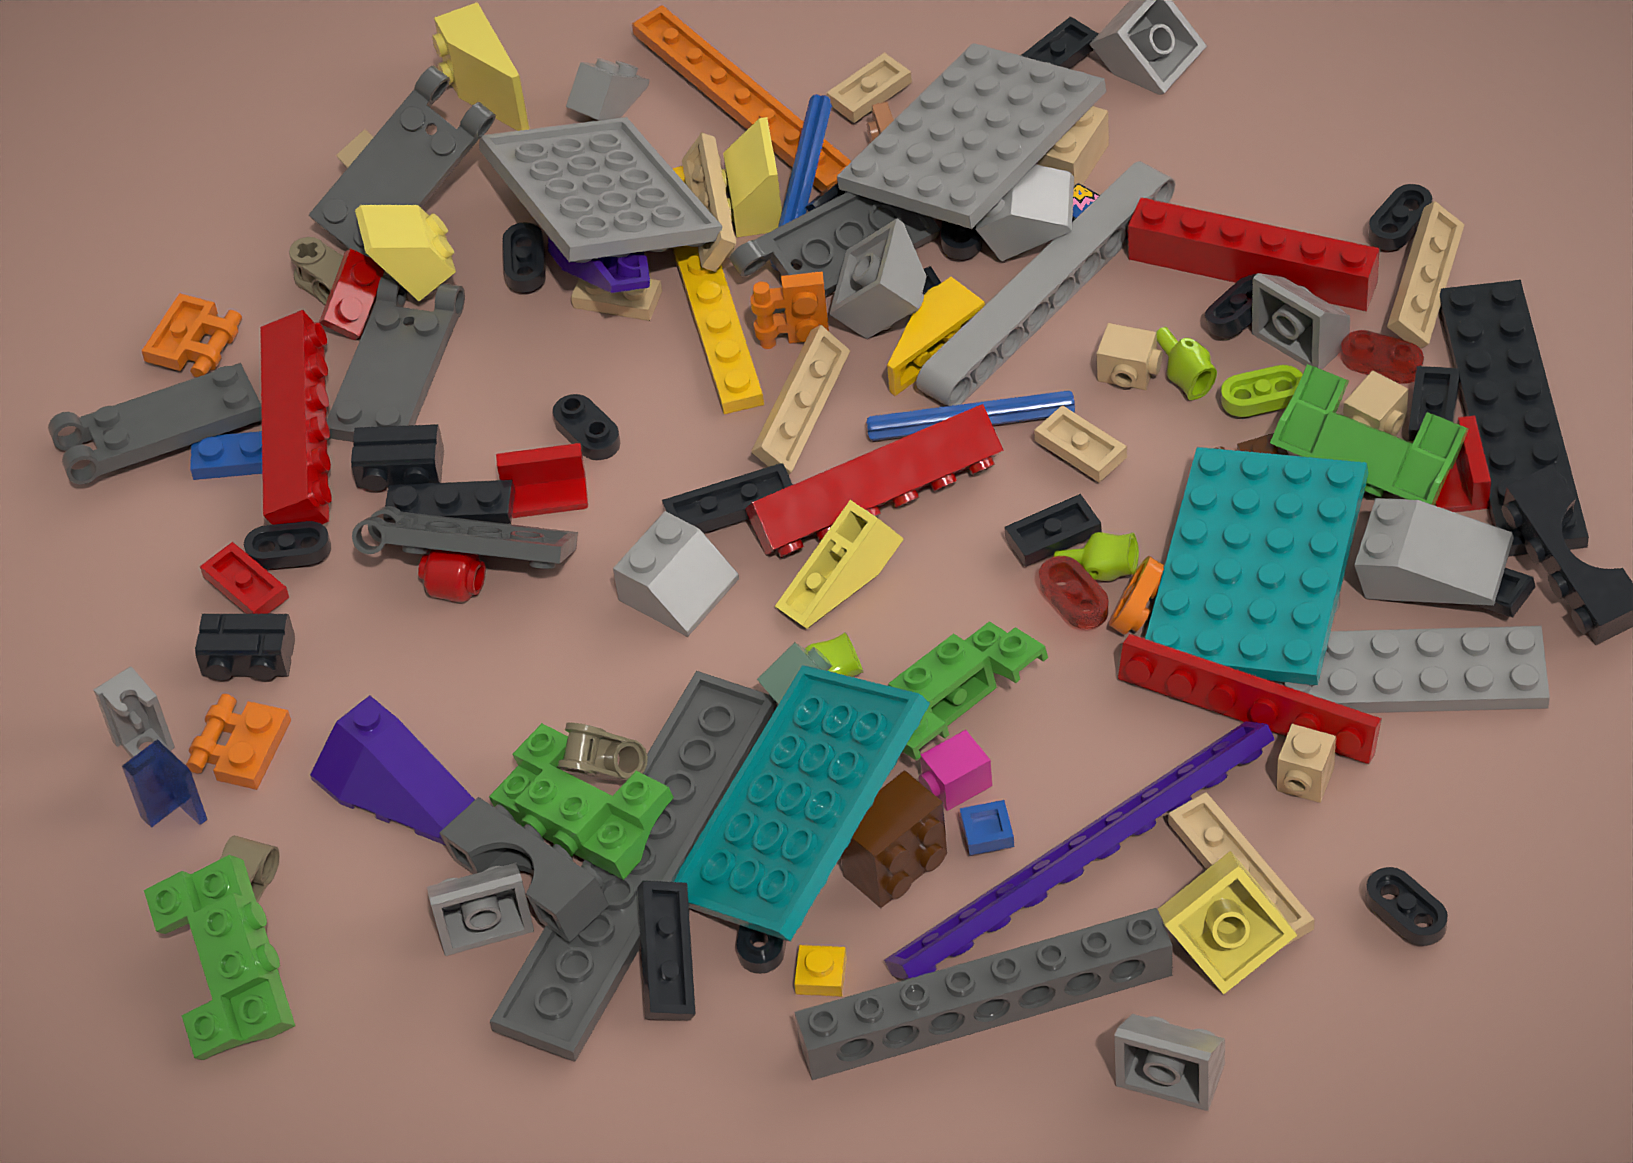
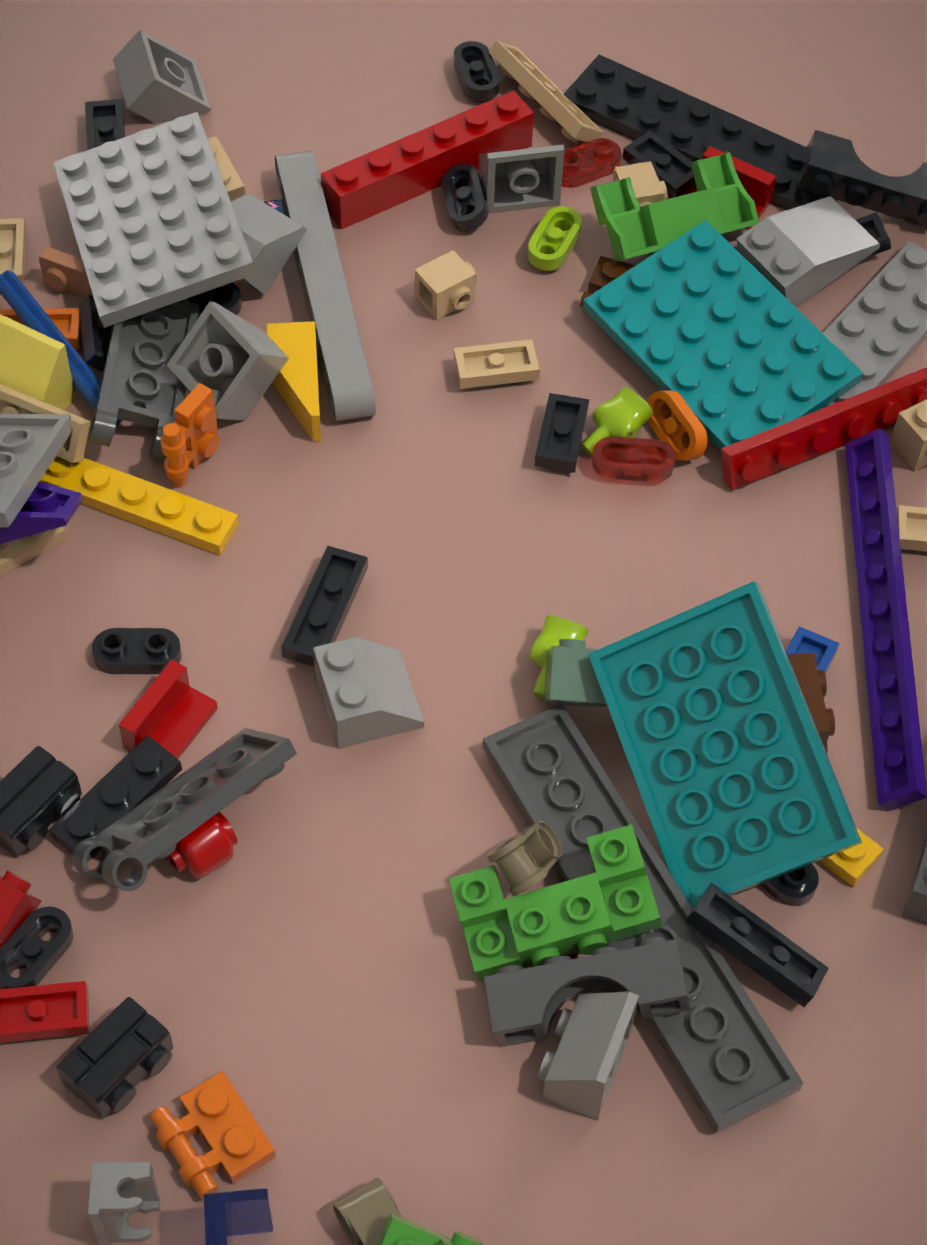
camera: 60 degrees left, 5 degrees up
(386, 770) = (380, 1031): dark purple wedge -> none
(801, 399) = (273, 493): tan plate -> none
(840, 565) = (469, 580): light yellow slope -> none
(876, 479) = (410, 503): red brick -> none
(961, 675) = (650, 565): bright green bracket -> none
(999, 411) = (395, 410): blue axle -> none
(1187, 364) = (490, 258): lime piece -> none

